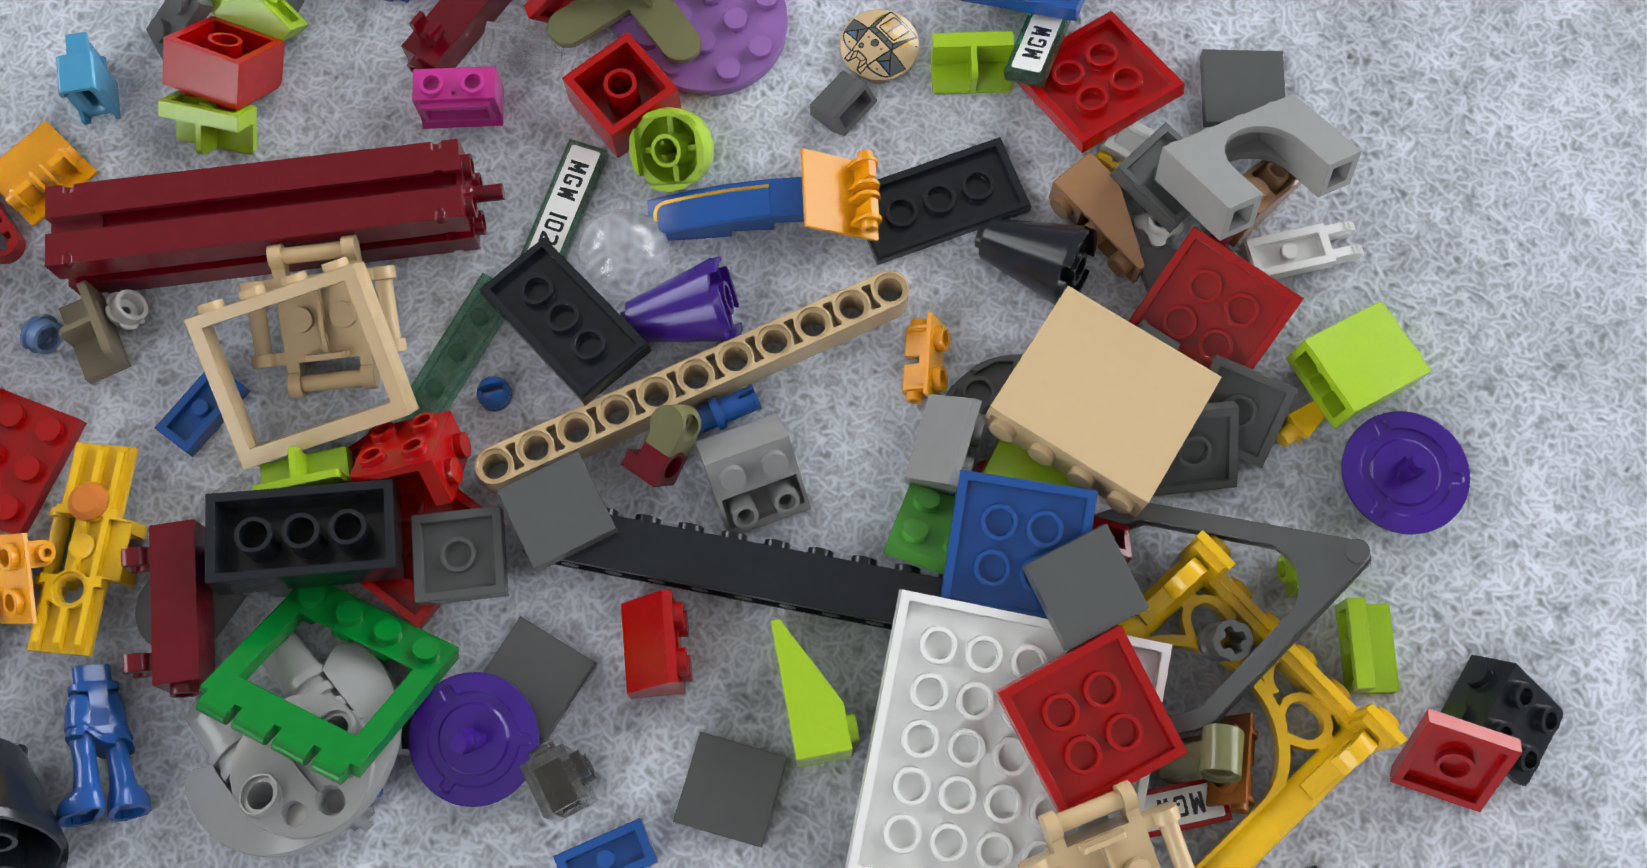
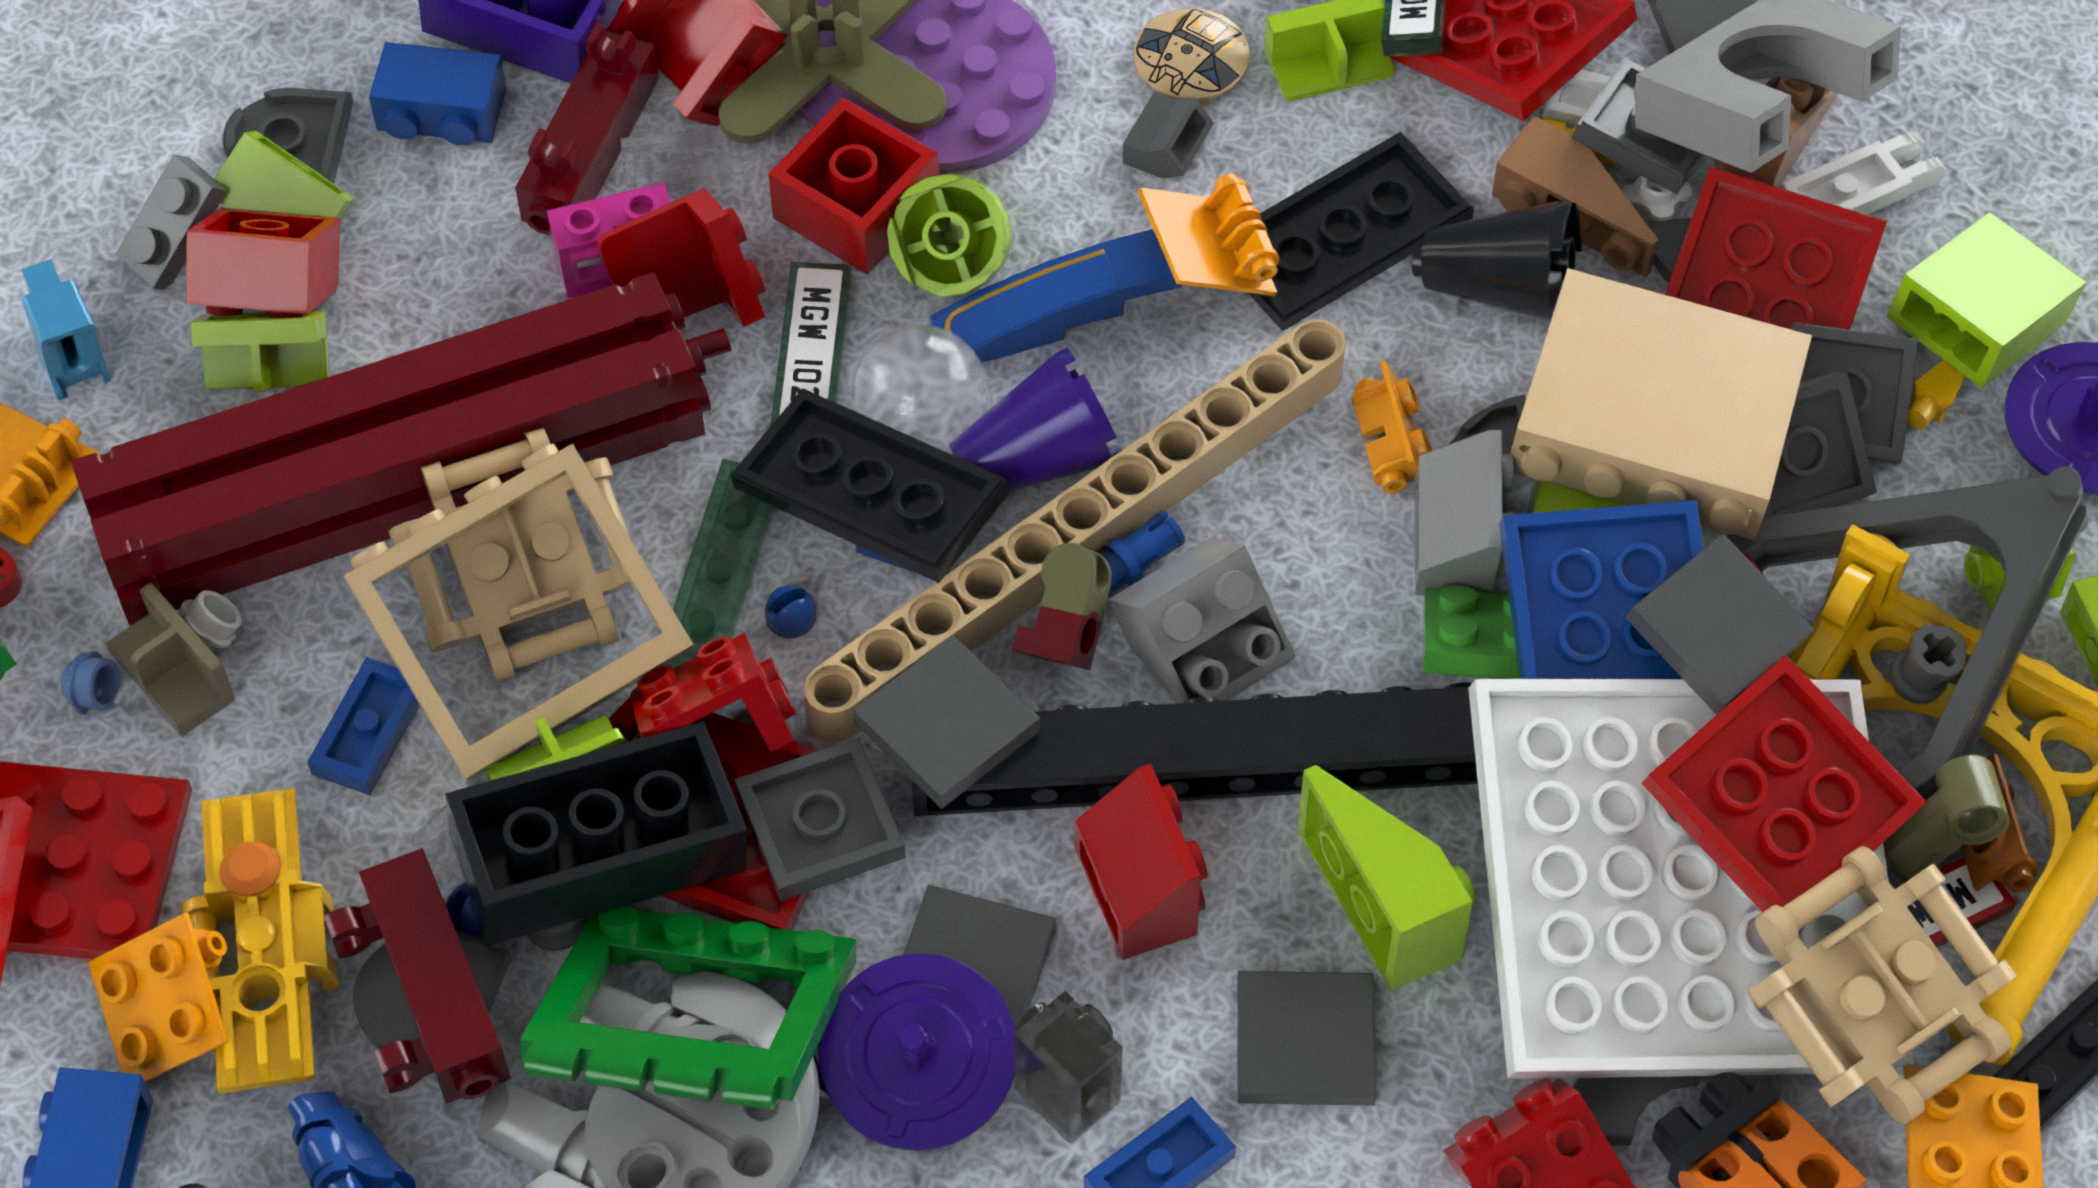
camera: 15 degrees left, 15 degrees down
(491, 126) = (693, 254): none -> red bracket

